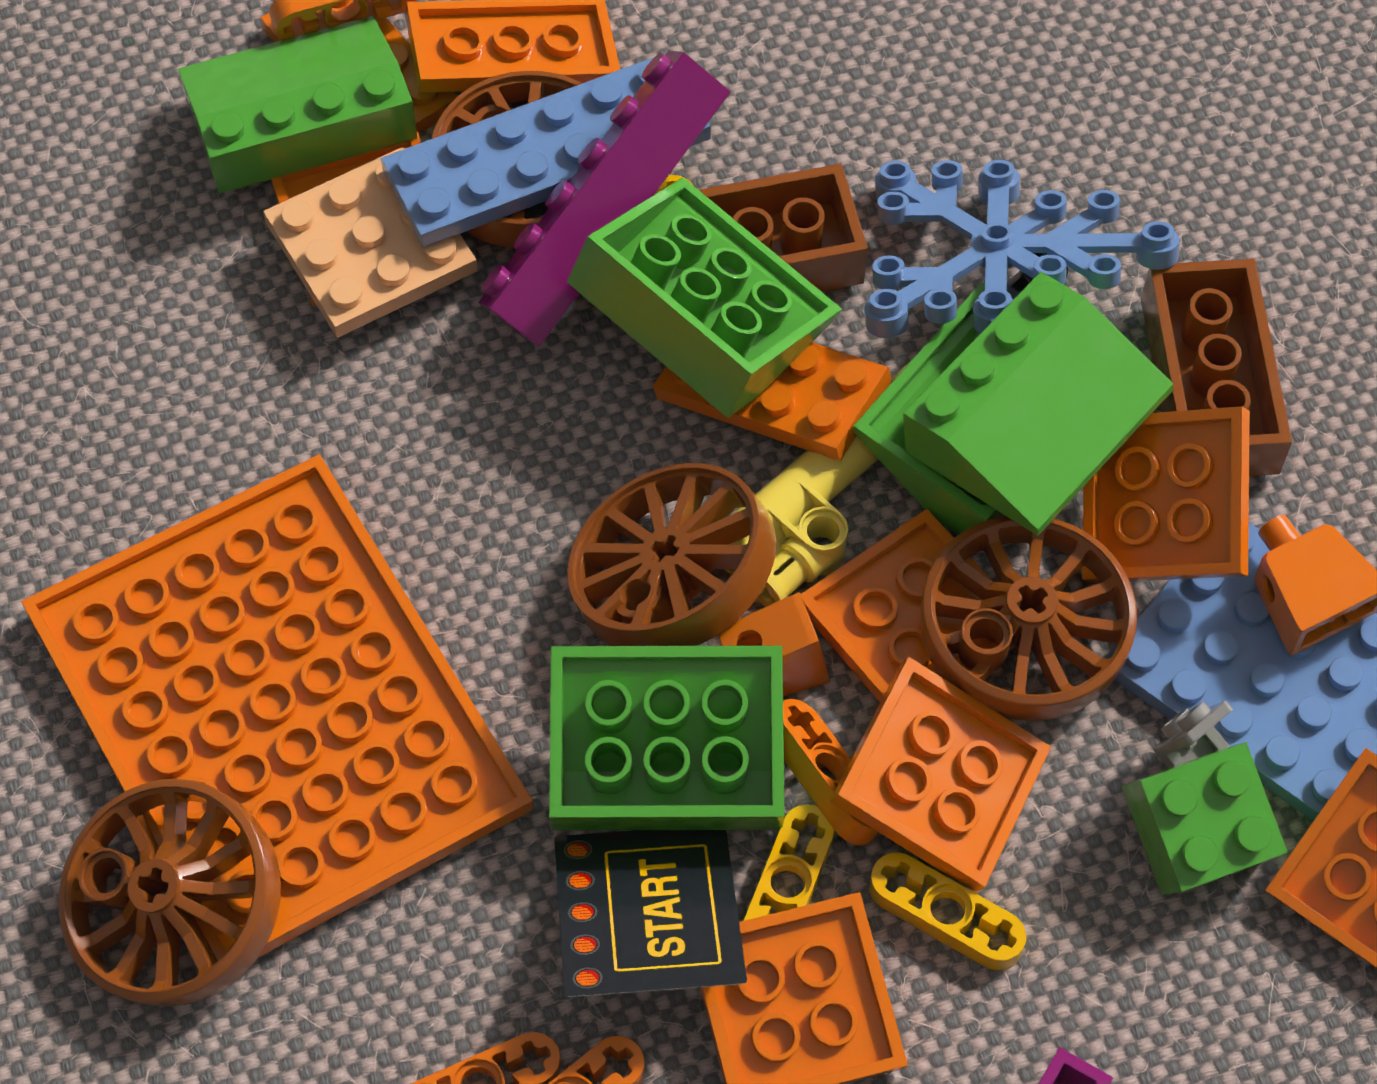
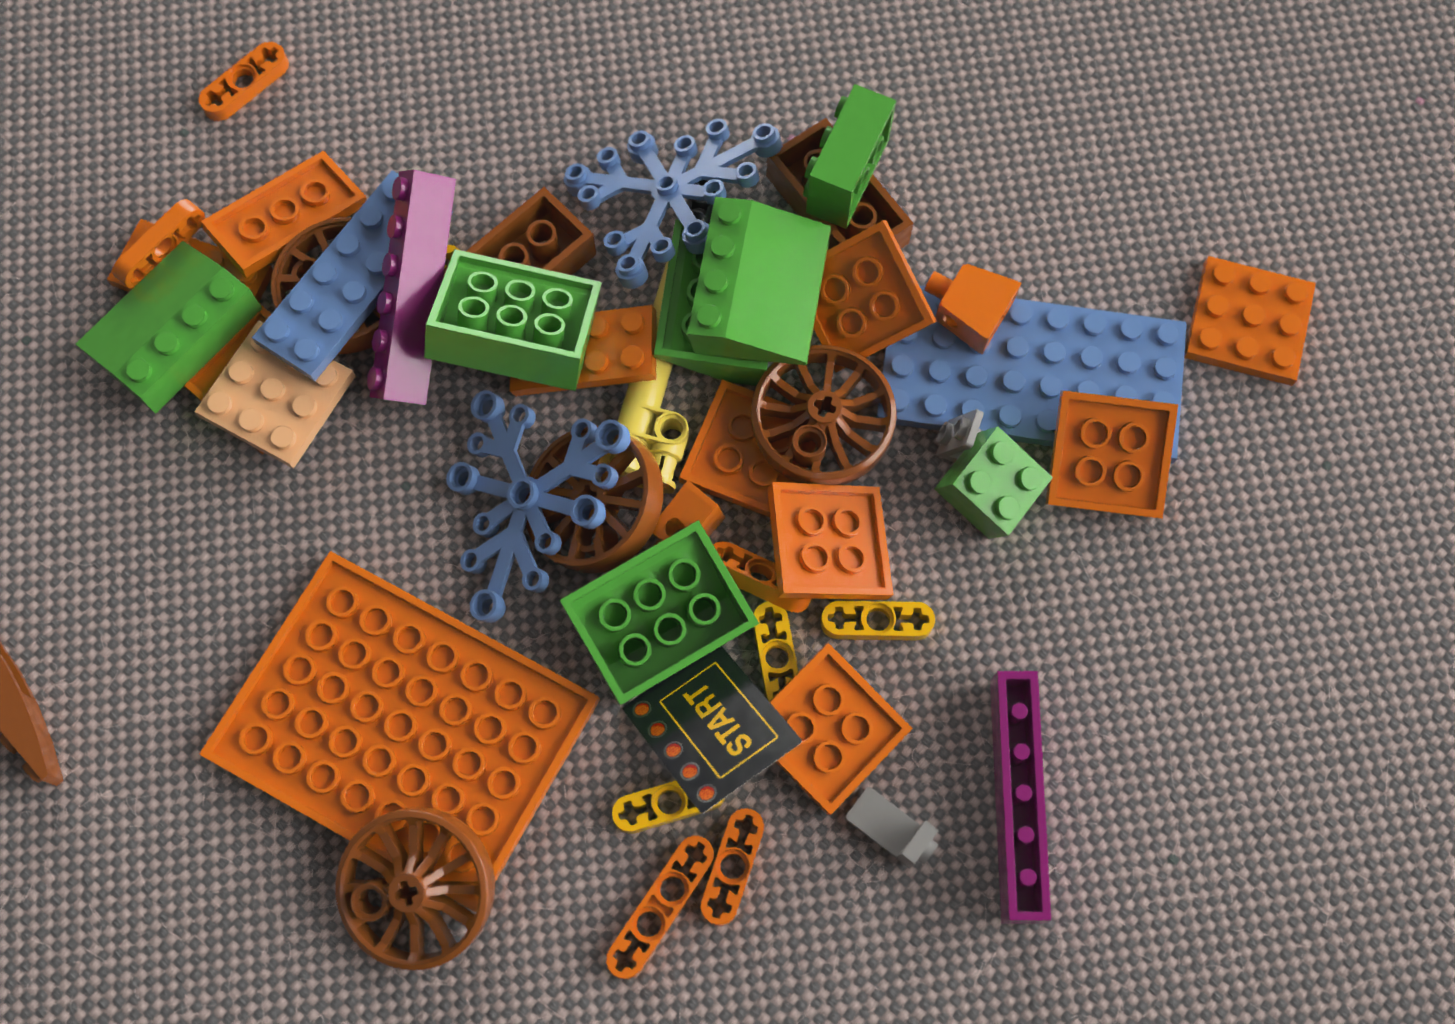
camera: 30 degrees left, 10 degrees up
(528, 958) = (643, 822): none -> yellow beam
(593, 512) = (512, 541): none -> medium blue plant
(1248, 311) = (848, 155): none -> bright green brick

